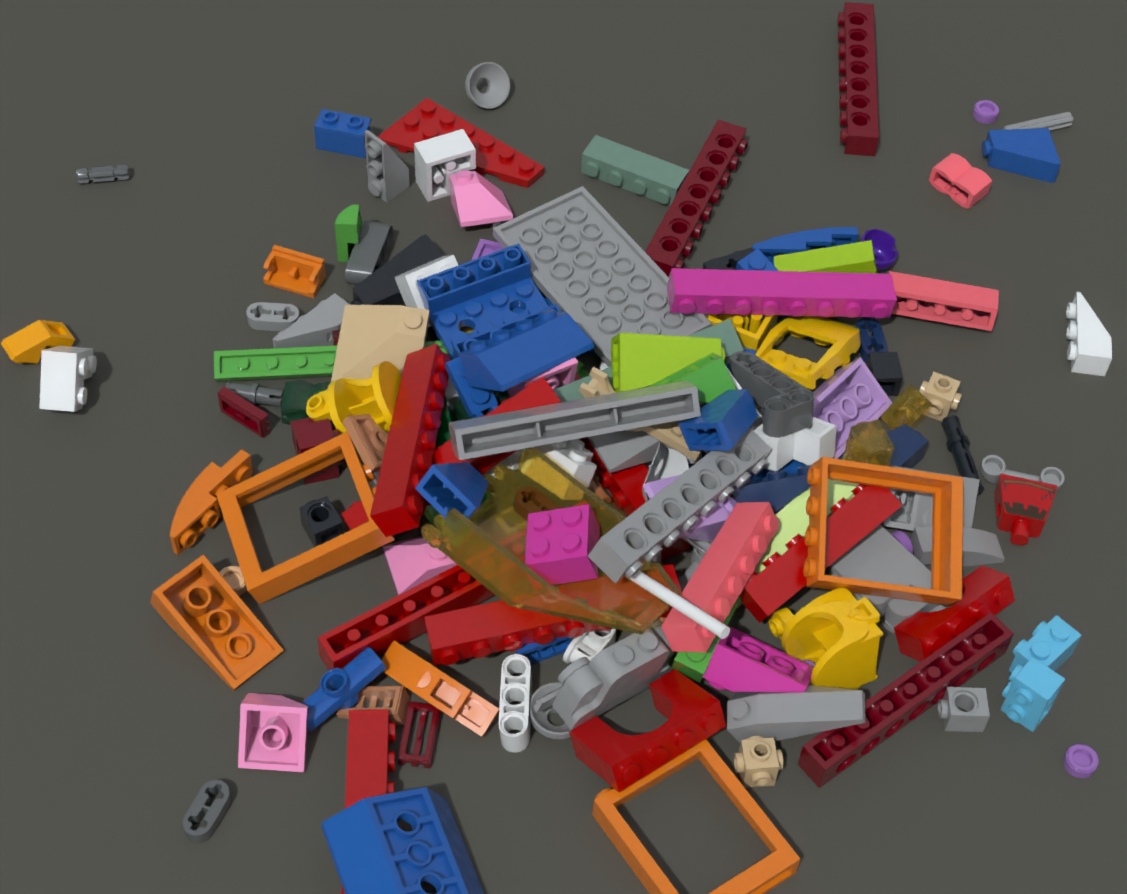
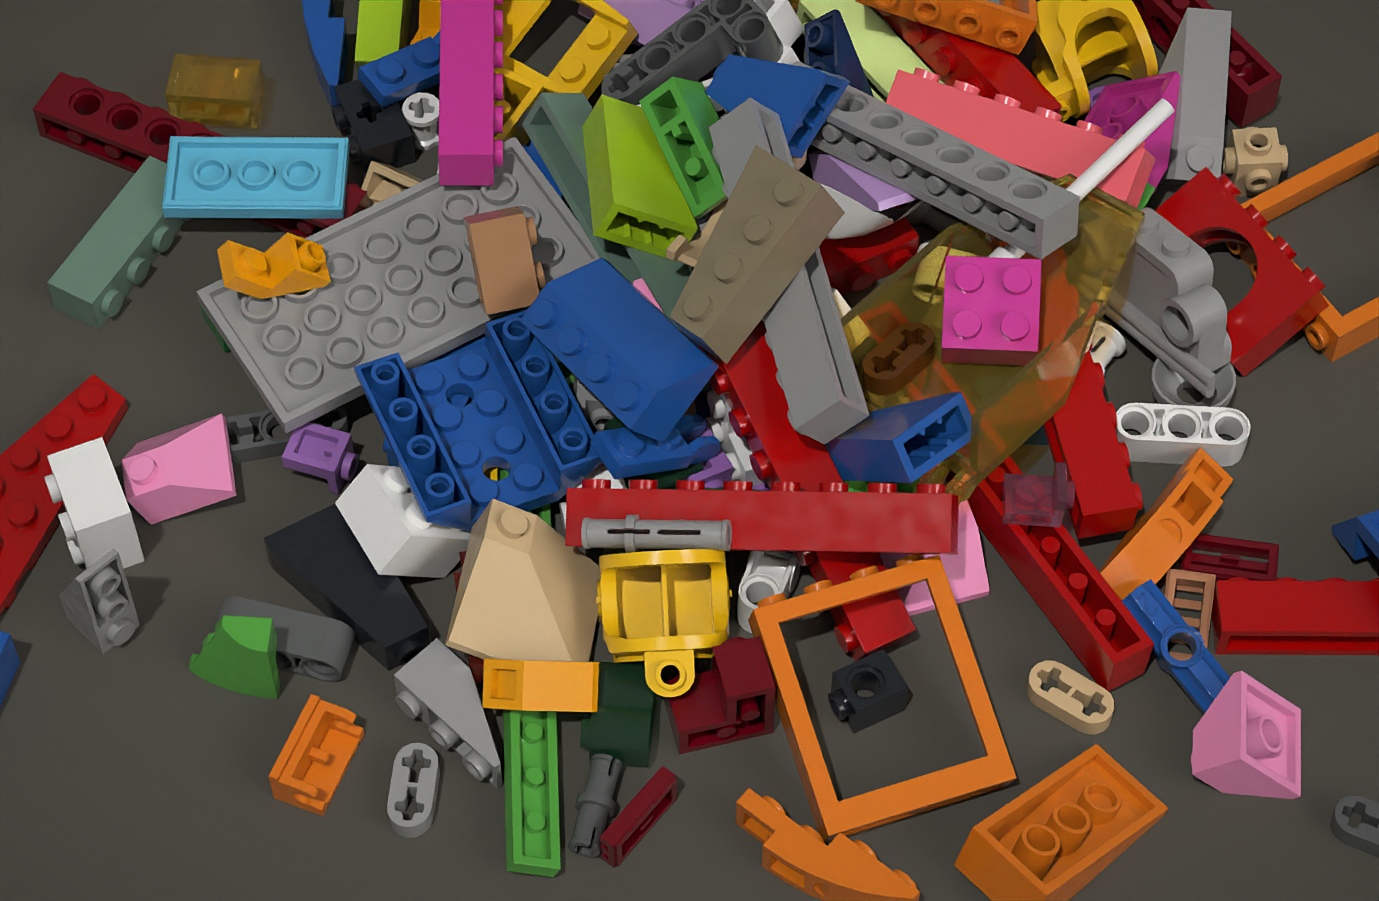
camera: 85 degrees left, 5 degrees up
(234, 578) = (965, 815): light nougat tile -> none
(310, 633) = (1070, 697): none -> tan beam
(317, 354) = (540, 685): none -> light orange slope
(368, 439) = (768, 577): nougat tile -> none
(400, 374) = (649, 534): none -> light grey pin
(439, 592) = (1037, 498): none -> clear pink bracket
(566, 382) = (753, 253): none -> dark tan wedge
(593, 211) = (283, 269): none -> light orange slope
(596, 301) = (504, 259): none -> medium nougat brick
(675, 214) = (256, 177): none -> medium azure tile
(747, 199) = (216, 90): none -> clear yellow brick

